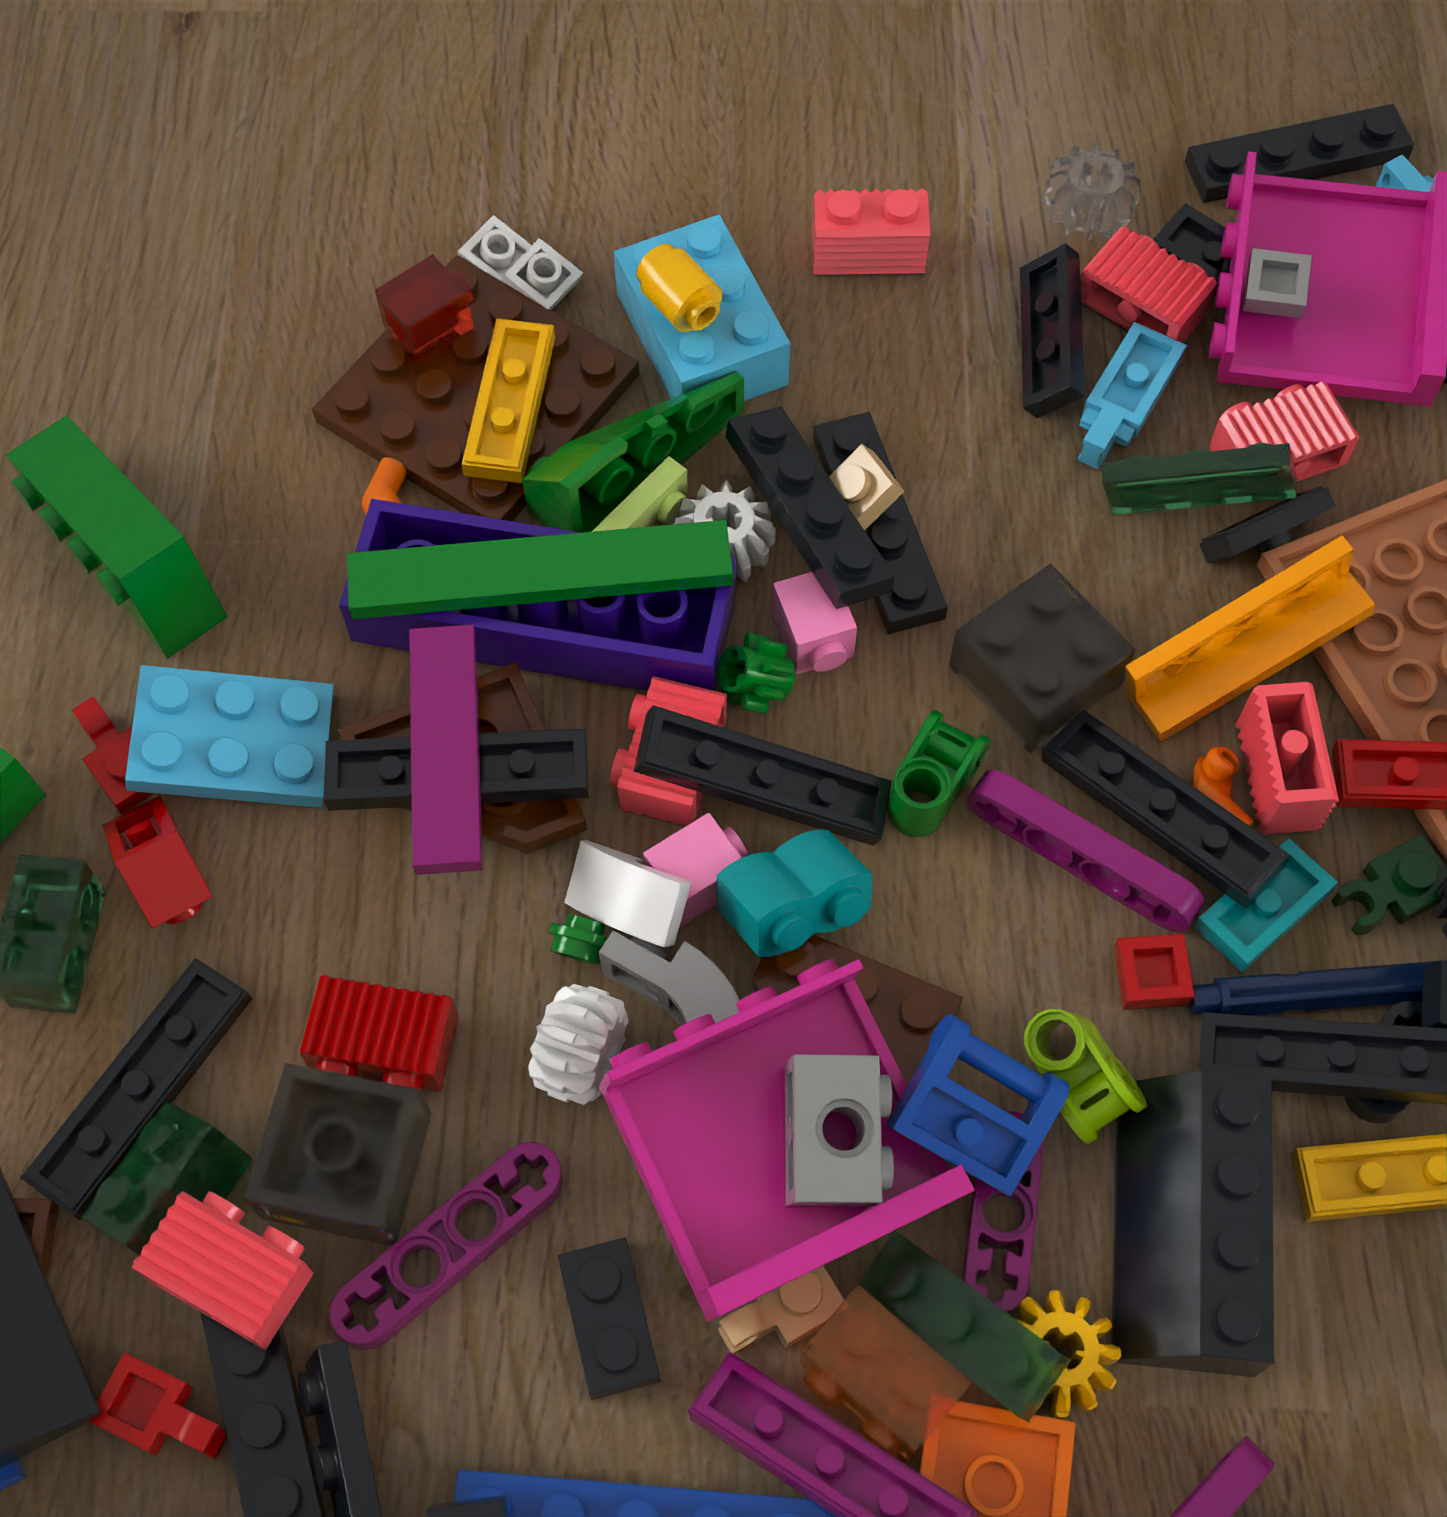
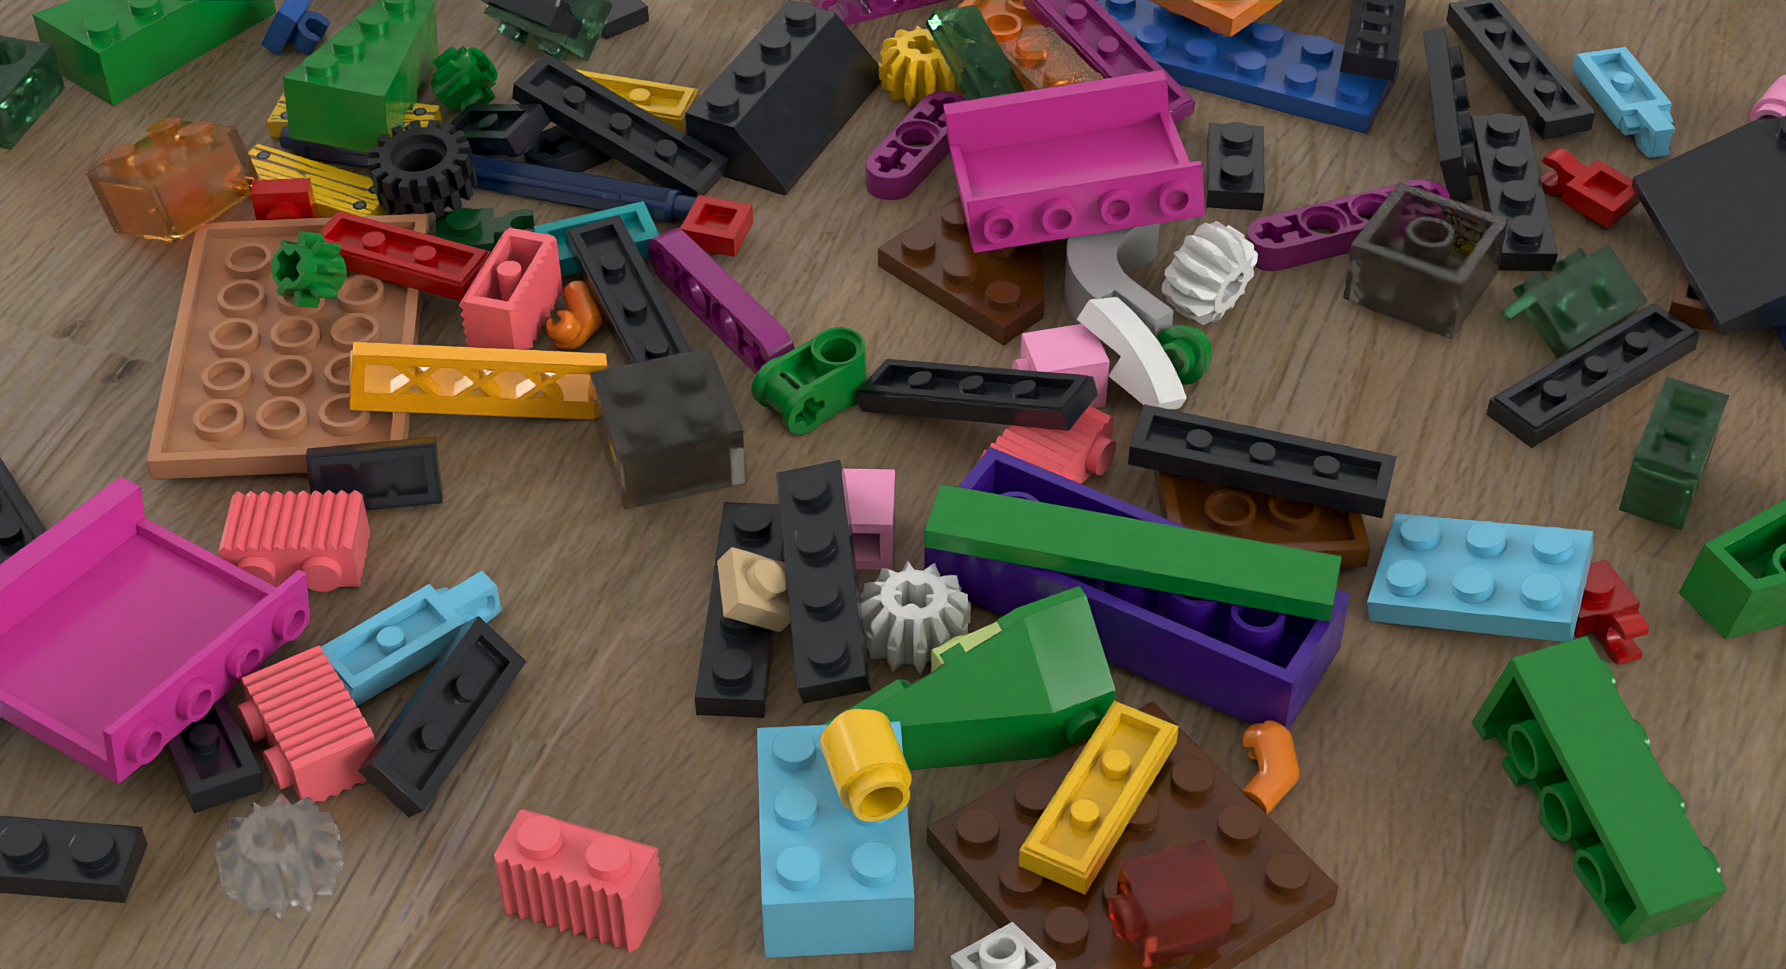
camera: 160 degrees left, 20 degrees down
(156, 863) = (1570, 489): red slope -> none
(224, 1267) = (1543, 208): coral brick -> none
(380, 1033) = (1376, 335): red brick -> none
(445, 750) = (1270, 449): magenta tile -> none
(756, 673) = (930, 470): green gear -> none
(793, 892) = (985, 313): teal brick -> none
(814, 1169) = (1032, 141): light grey brick -> none
(967, 1126) = (913, 143): blue plate -> none
(1089, 1070) = (813, 179): lime piece -> none
(1200, 479) = (418, 497): clear green plate -> none
(1277, 283) = (190, 619): light grey plate -> none

